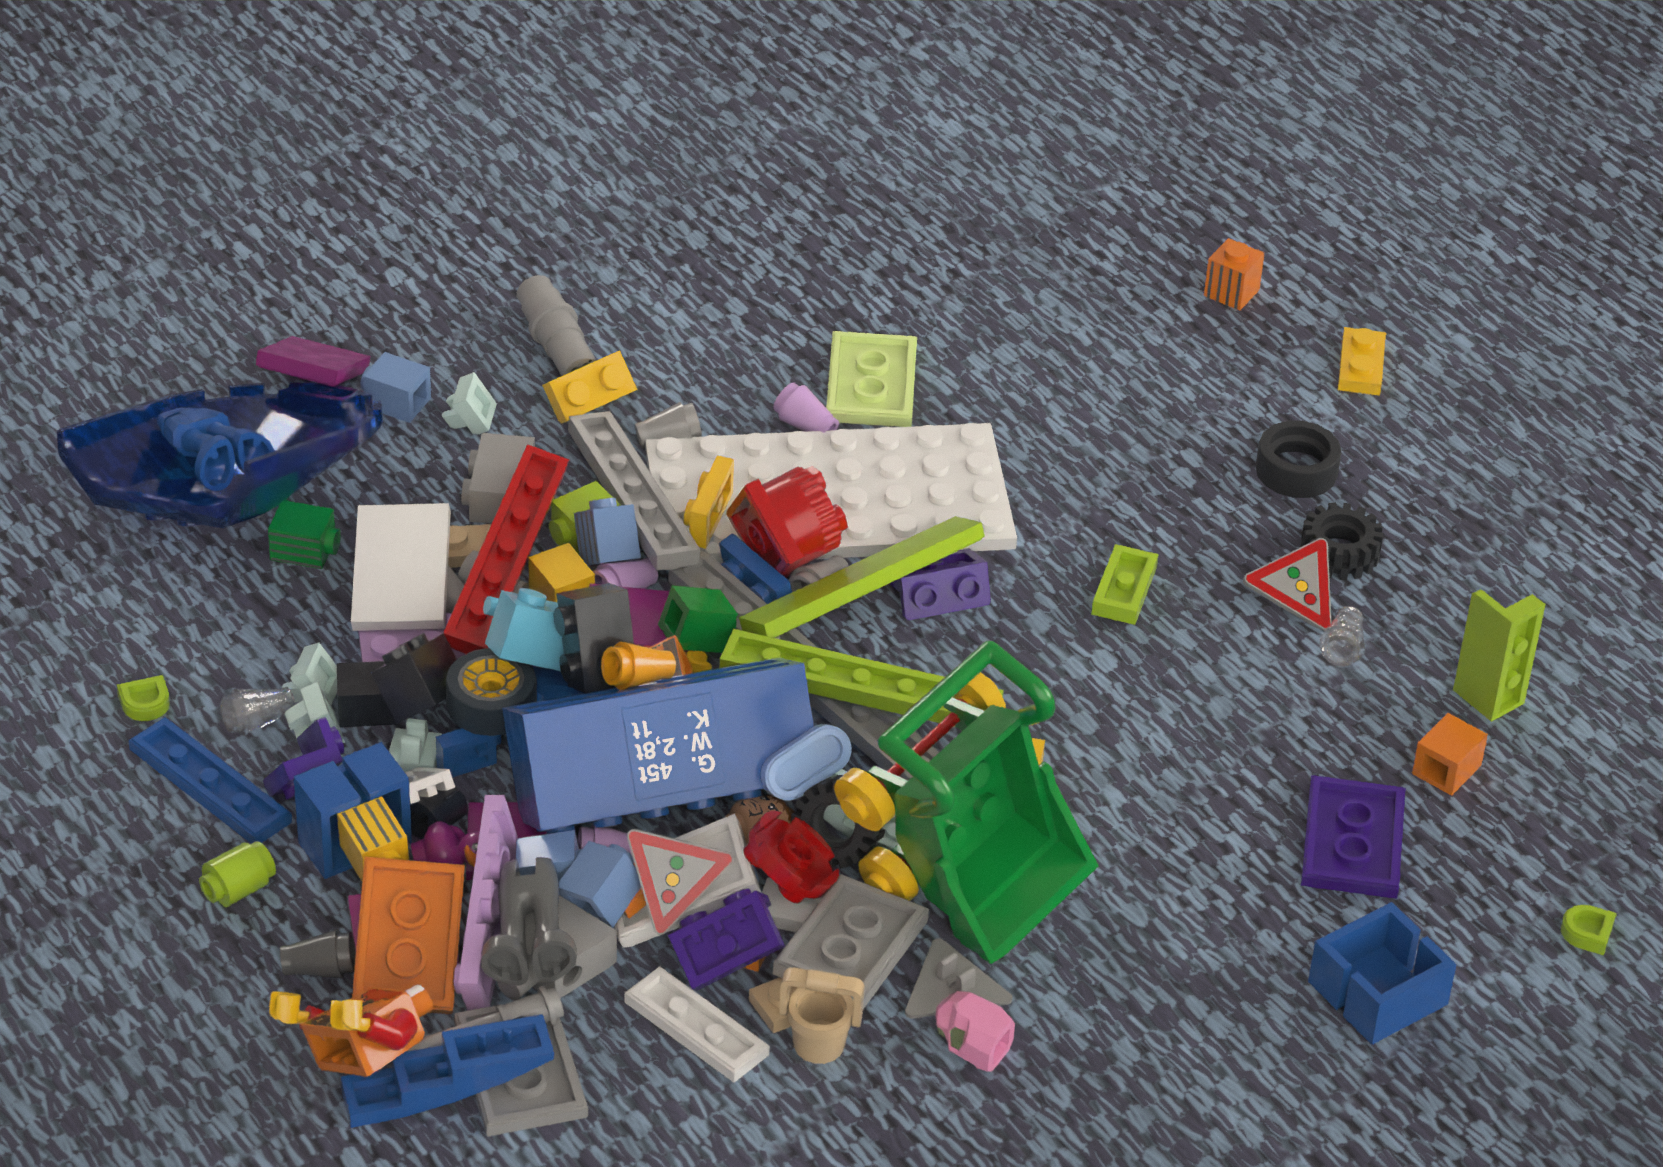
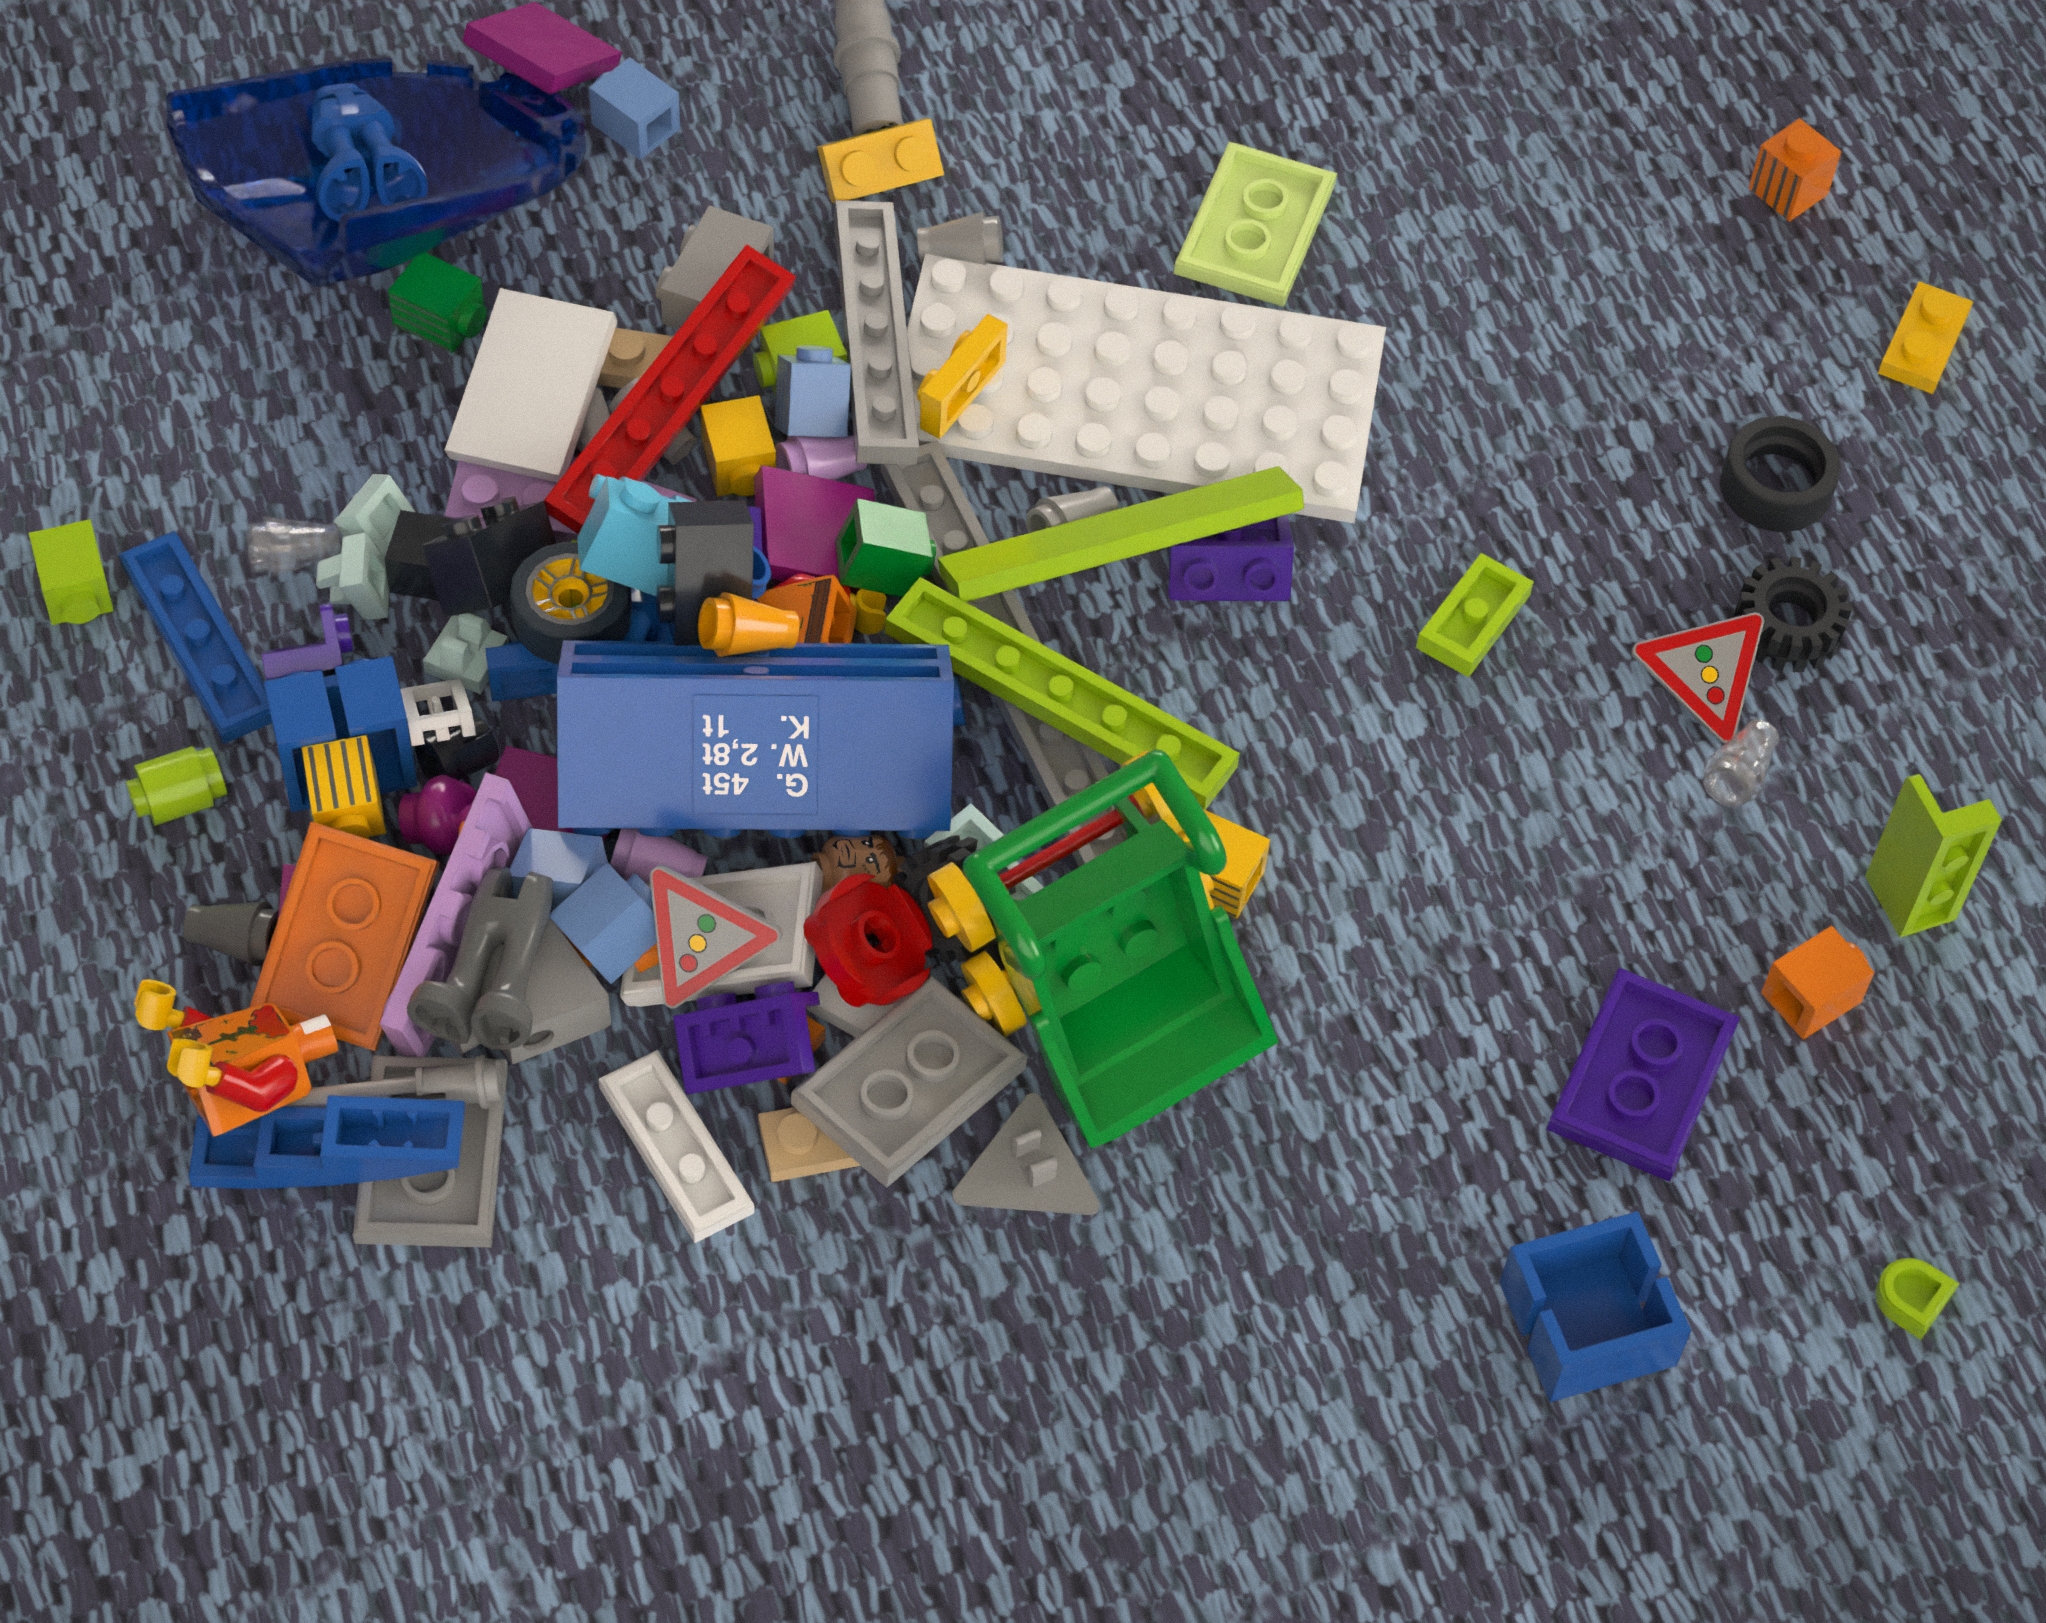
camera: 15 degrees right, 15 degrees up
(100, 756) = (71, 573): none -> lime brick
(144, 698) = (163, 495): lime tile -> none
(470, 406) = (720, 155): light aqua tile -> none
(753, 570) = (979, 478): blue plate -> none
(788, 519) = (1046, 433): red piece -> none
(803, 410) = (1145, 255): lavender cone -> none
(806, 762) = (930, 810): light blue tile -> none
(820, 1011) = (822, 1184): tan piece -> none
(975, 1029) = (1024, 1251): bright pink rock -> none

